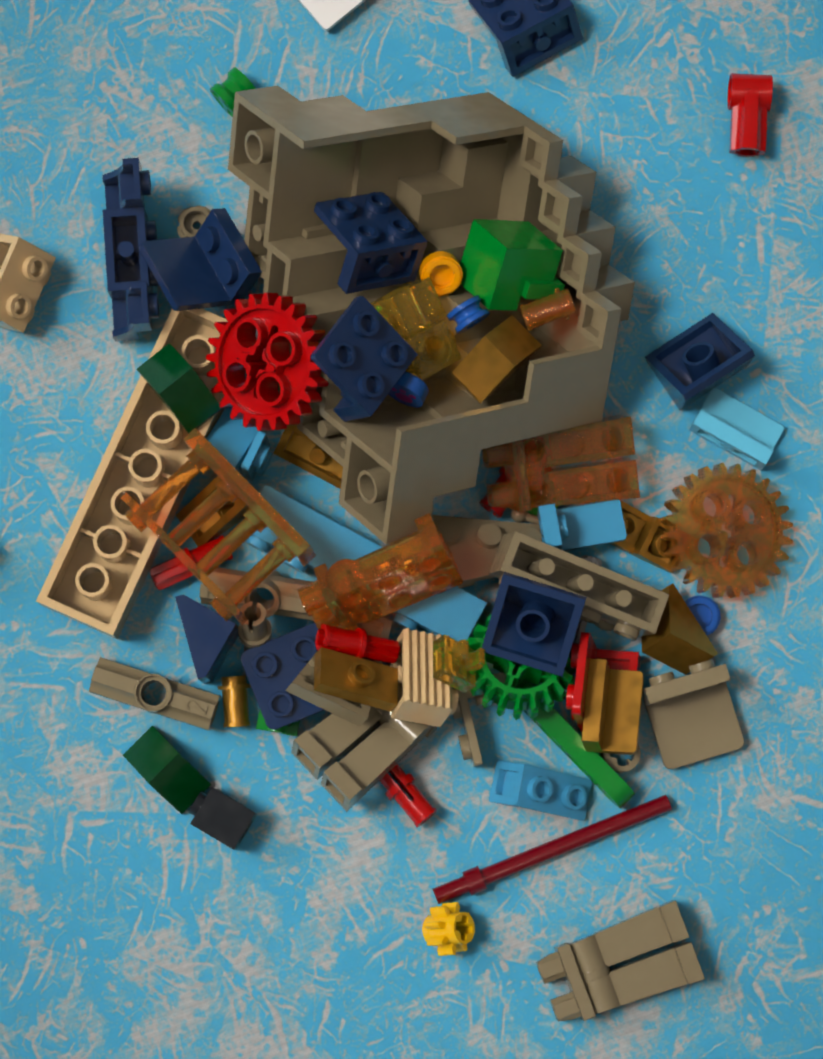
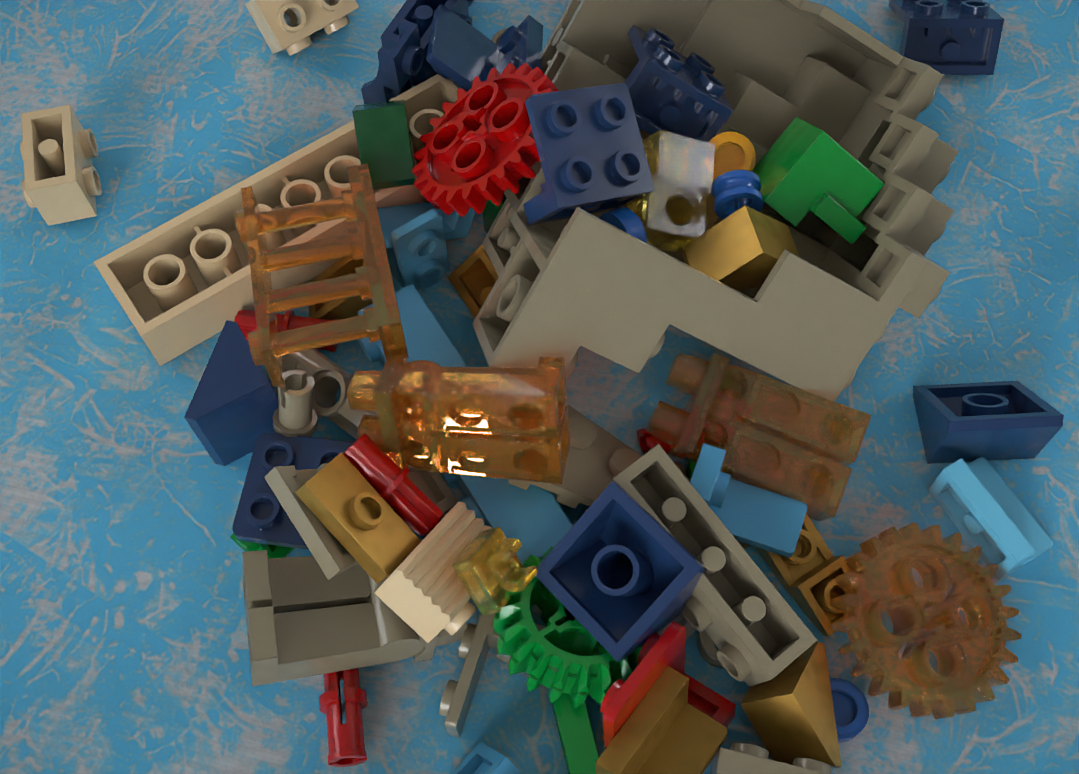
camera: 35 degrees right, 20 degrees down
(128, 687) = (167, 454): dark tan piece -> none
(166, 769) = (101, 530): dark green slope -> none
(221, 817) = (116, 614): black brick -> none
(235, 701) = (225, 496): pearl gold pin -> none
(548, 309) = (834, 236): clear orange pin -> none

